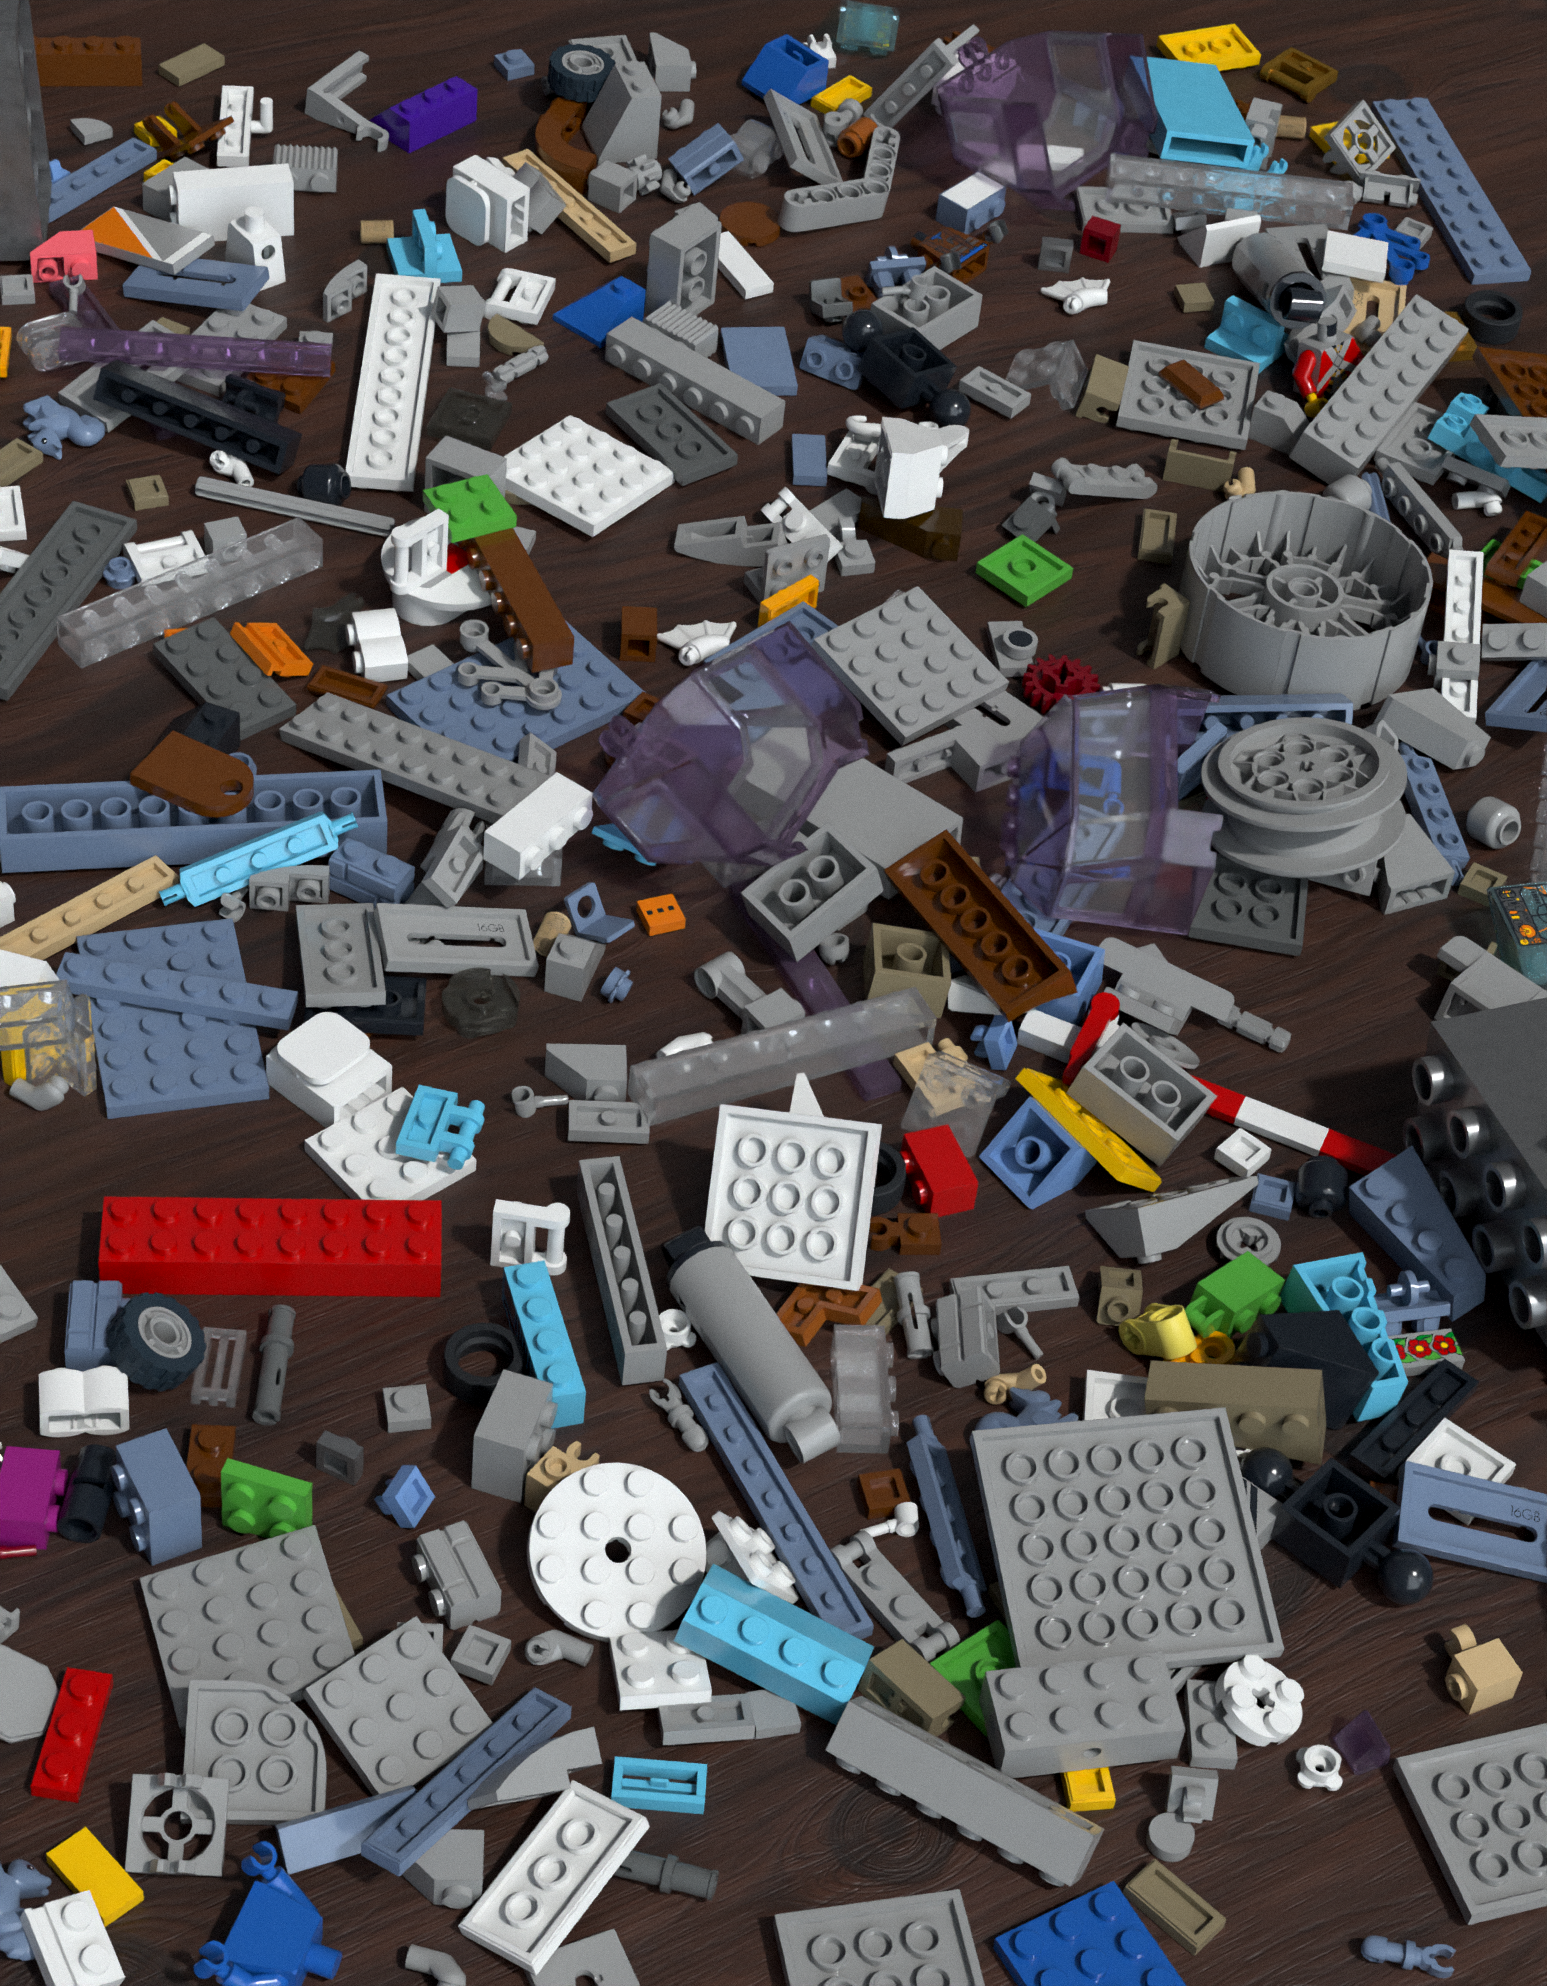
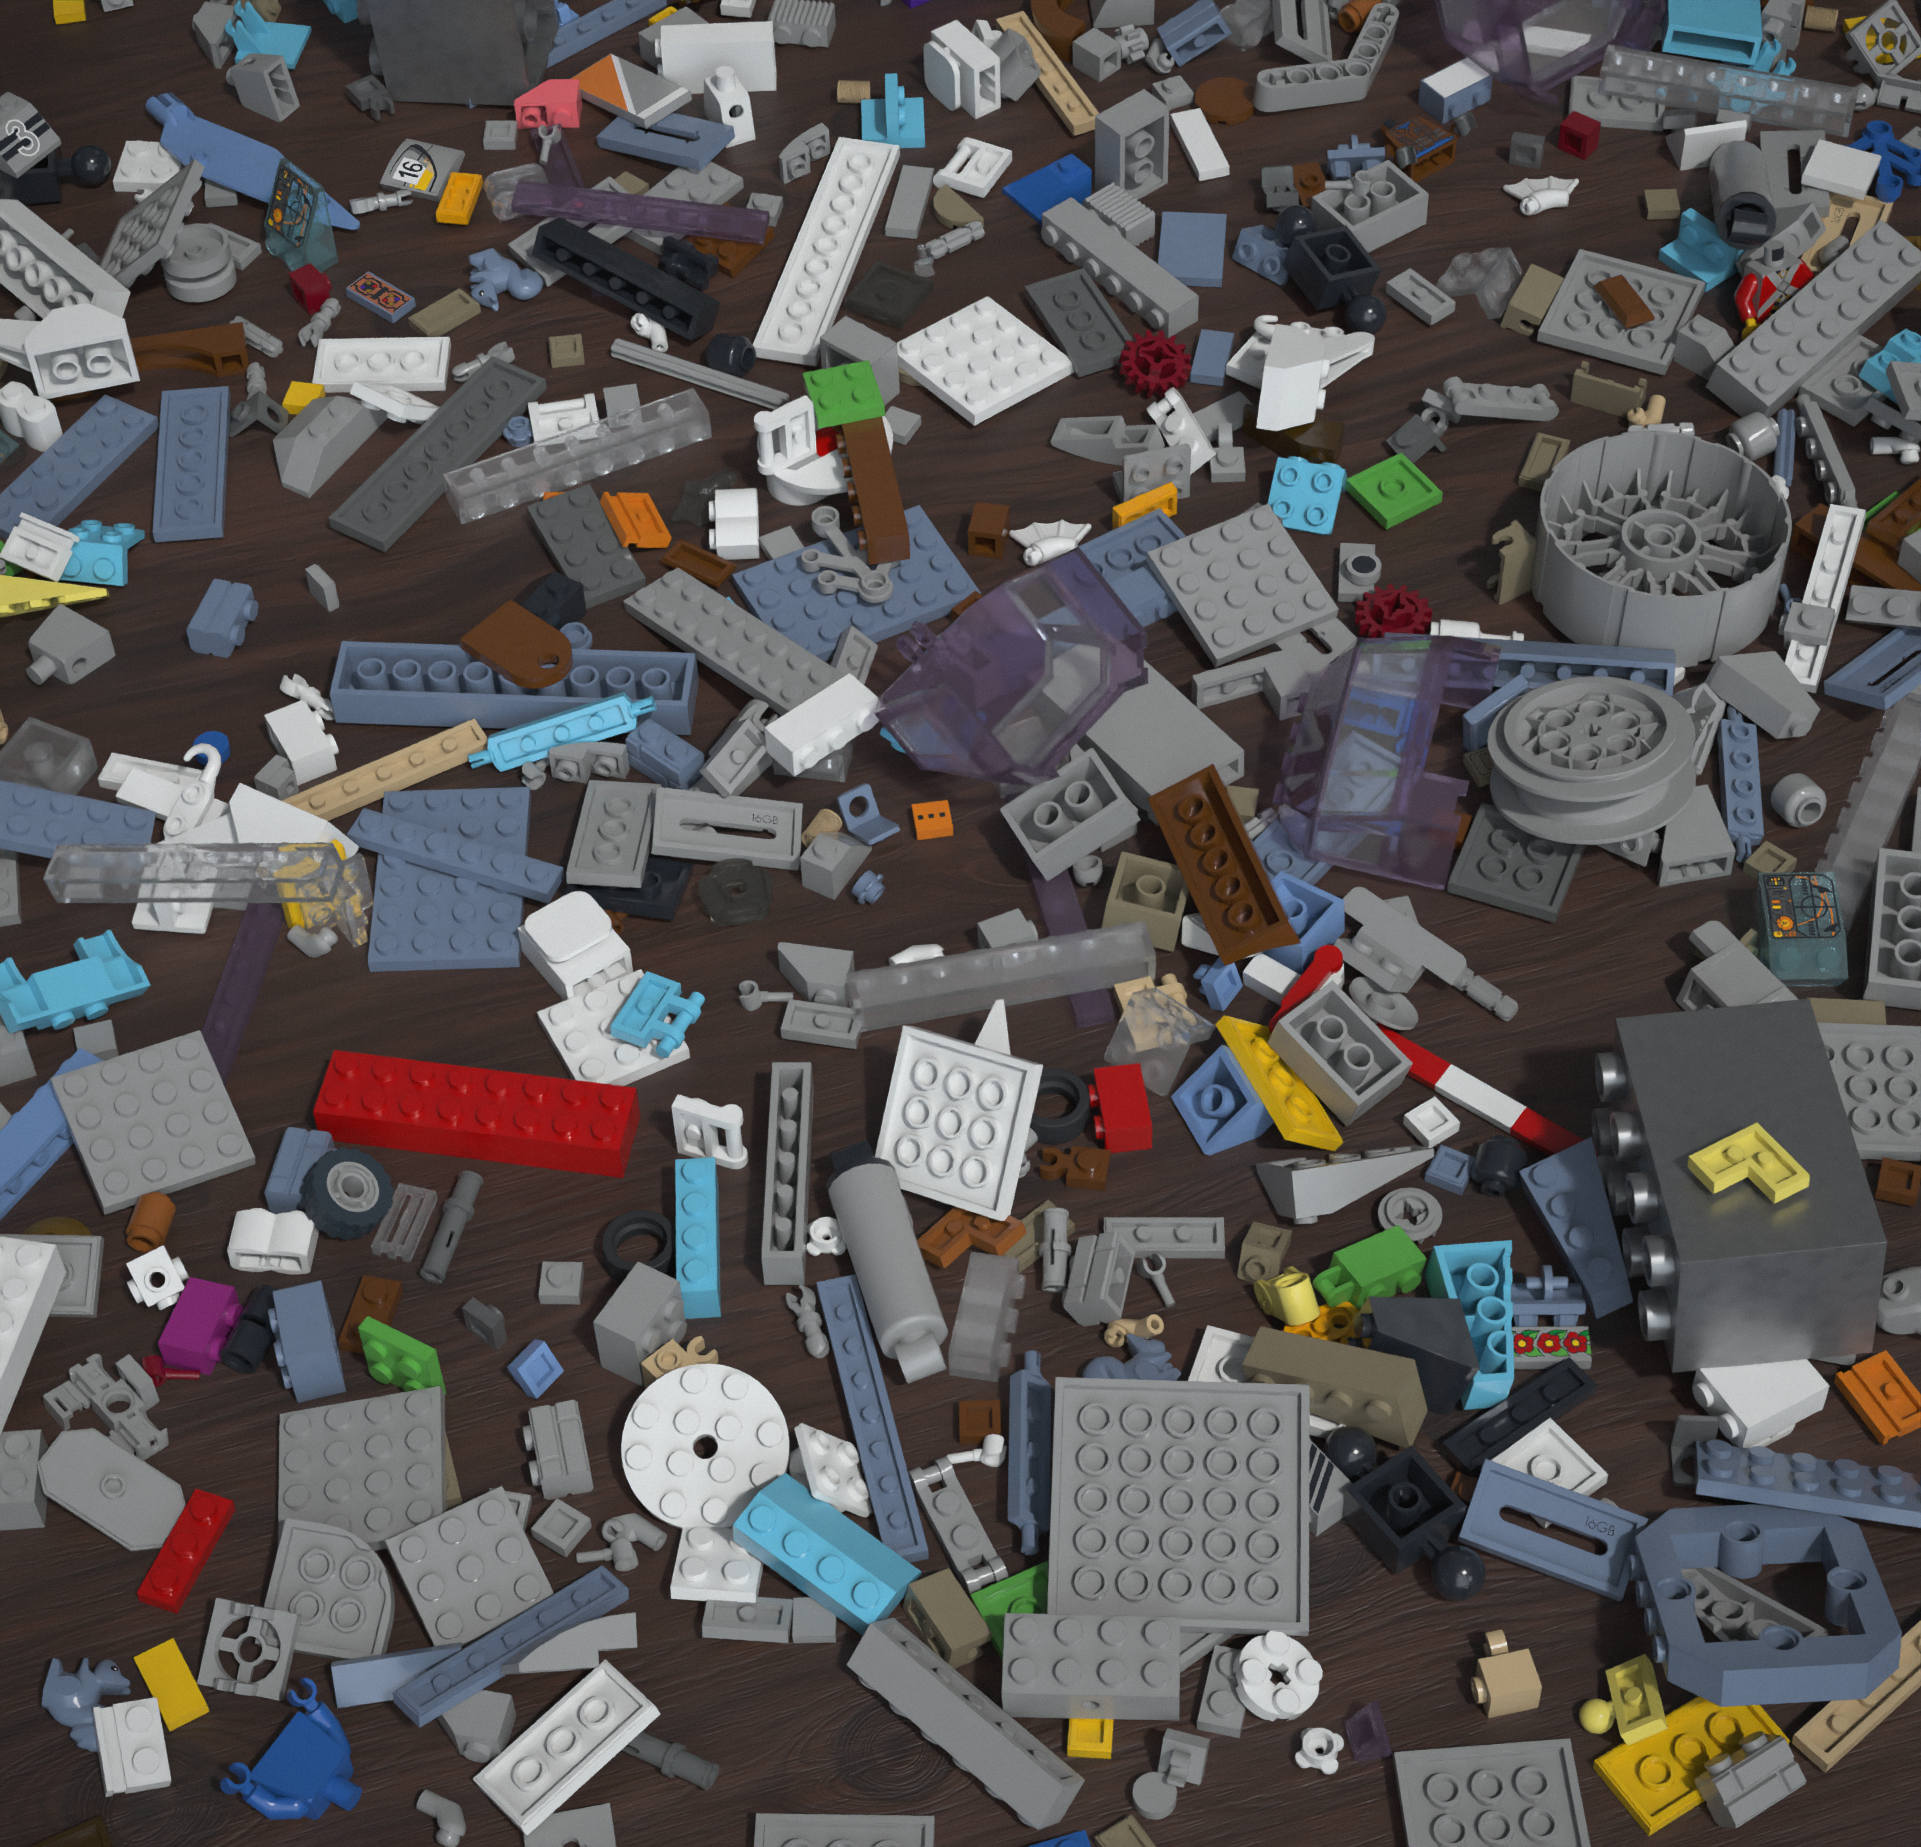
camera: 20 degrees right, 5 degrees up
(46, 518) = (465, 371): none -> light grey piece
(458, 308) = (904, 179): light grey brick -> none
(550, 1670) = (620, 1552): none -> light grey hand
(658, 1792) = (687, 1689): medium azure tile -> none
(727, 980) = (974, 894): light grey piece -> none
(757, 467) = (1154, 363): none -> dark red gear
(945, 576) = (1307, 494): none -> medium azure bracket

